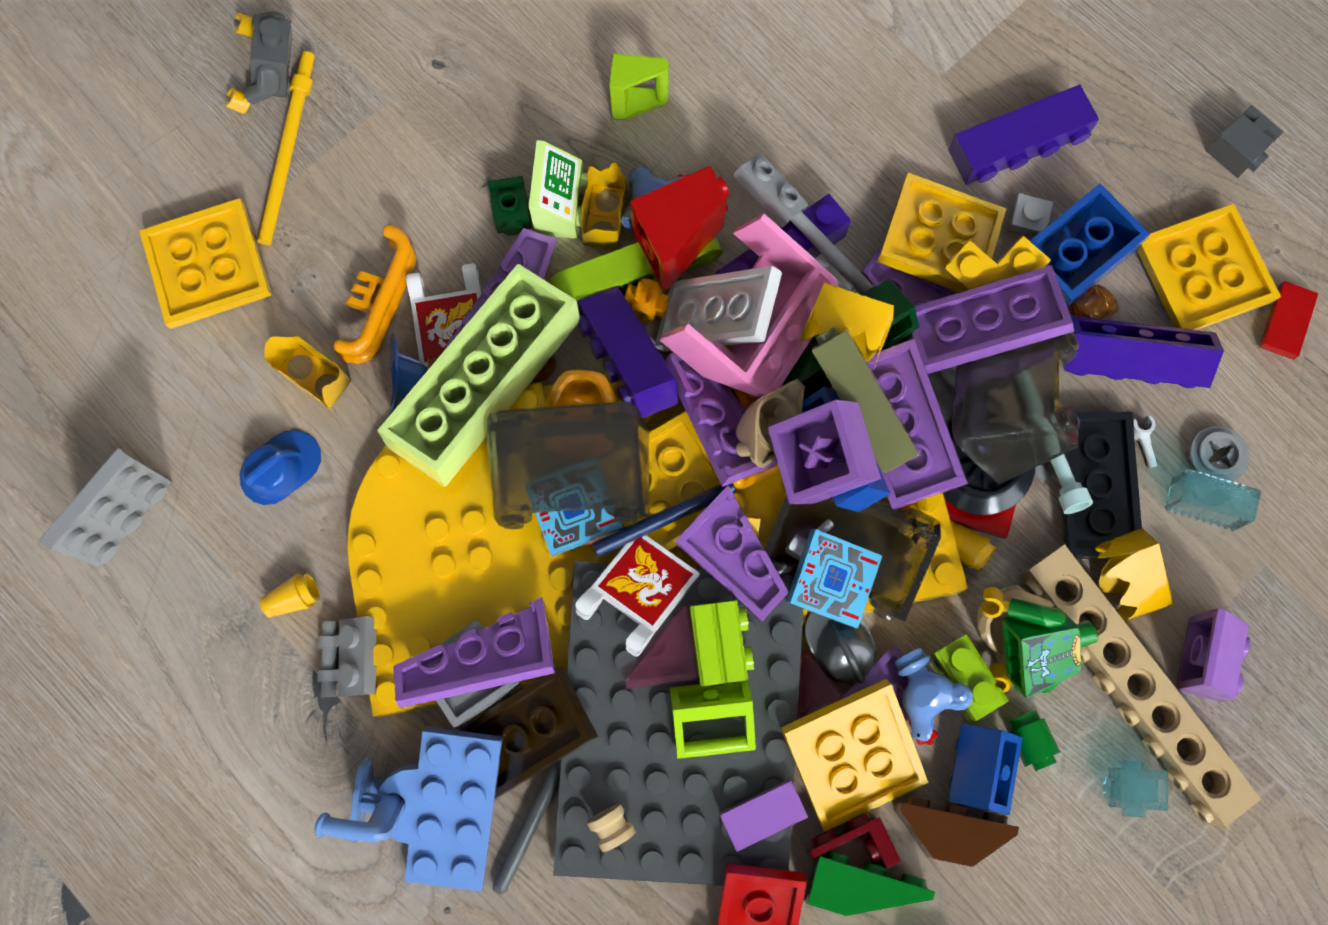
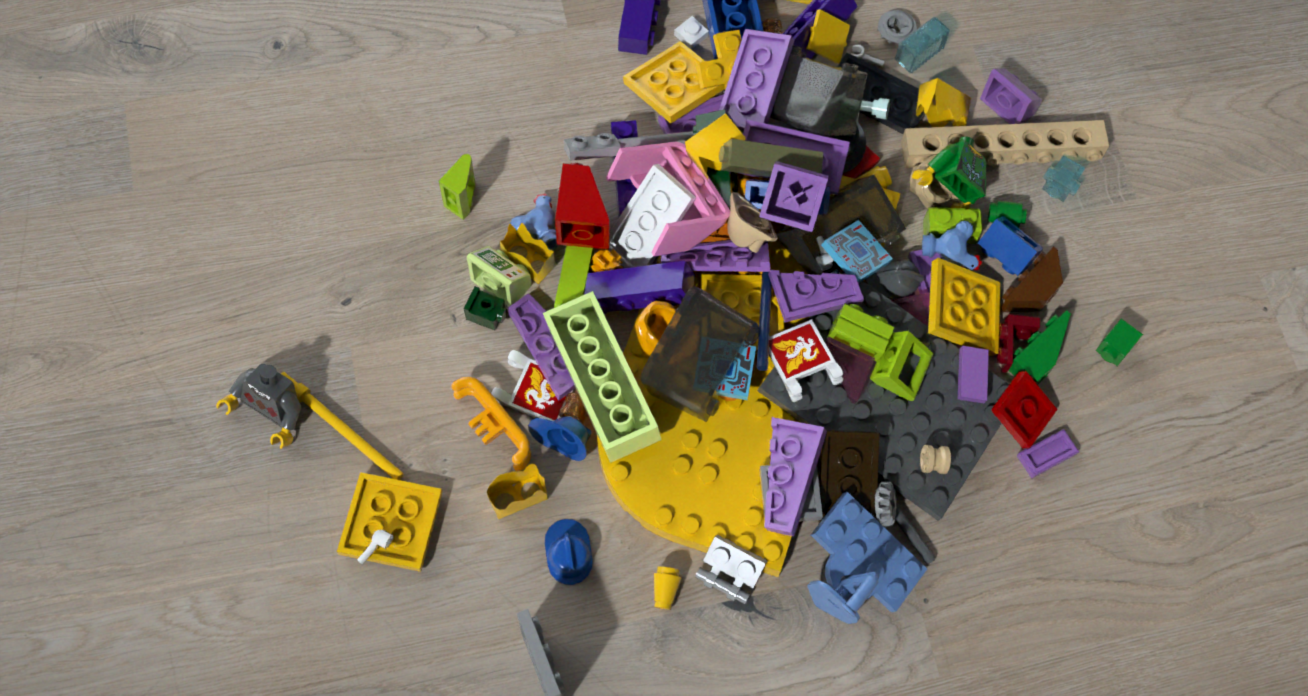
camera: 65 degrees left, 10 degrees down
(171, 265) = (379, 538): none -> white hand
(522, 796) = (885, 504): none -> light grey gear
(1135, 376) = (828, 36): none -> yellow piece

